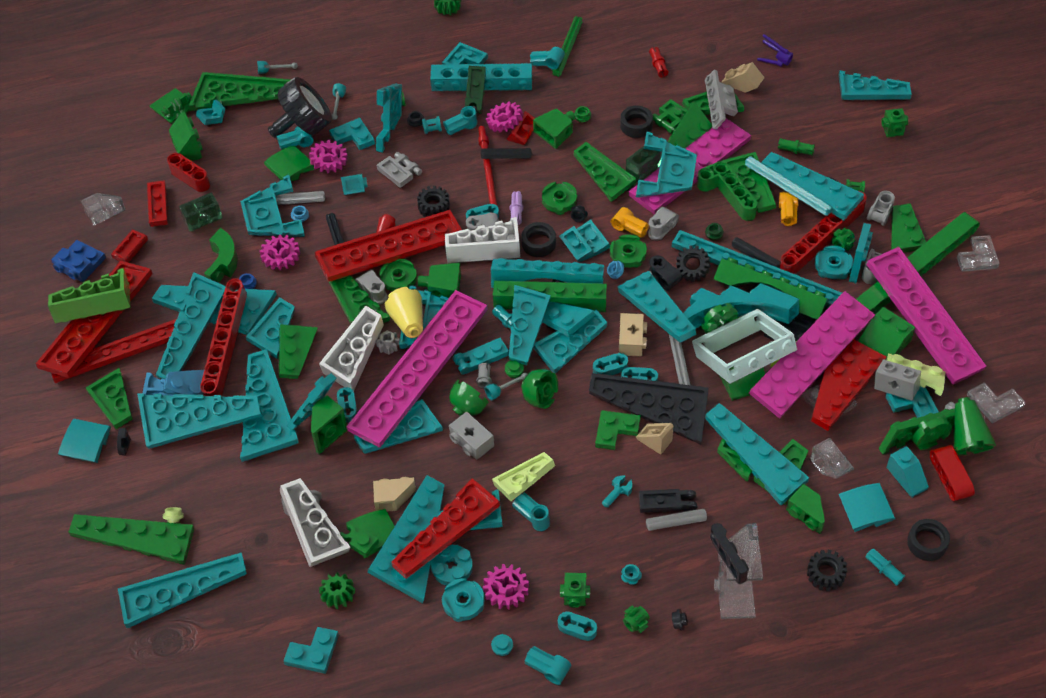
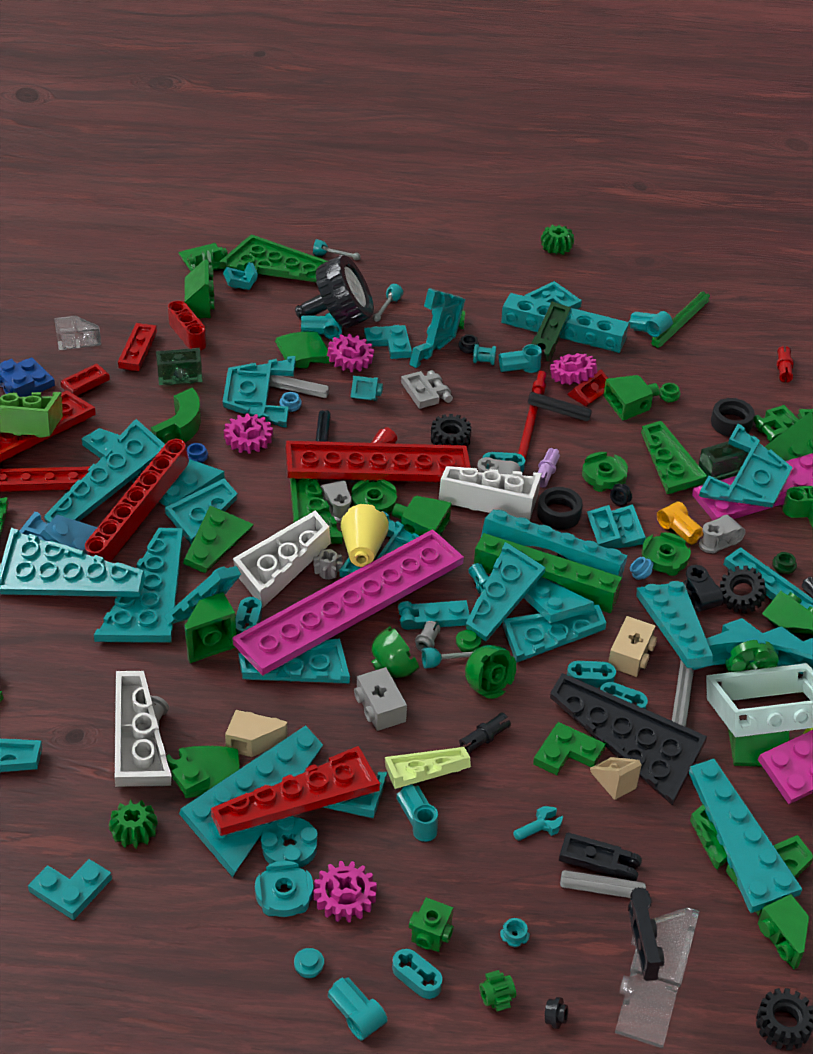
camera: 15 degrees right, 10 degrees down
(554, 436) = (485, 732): none -> black pin

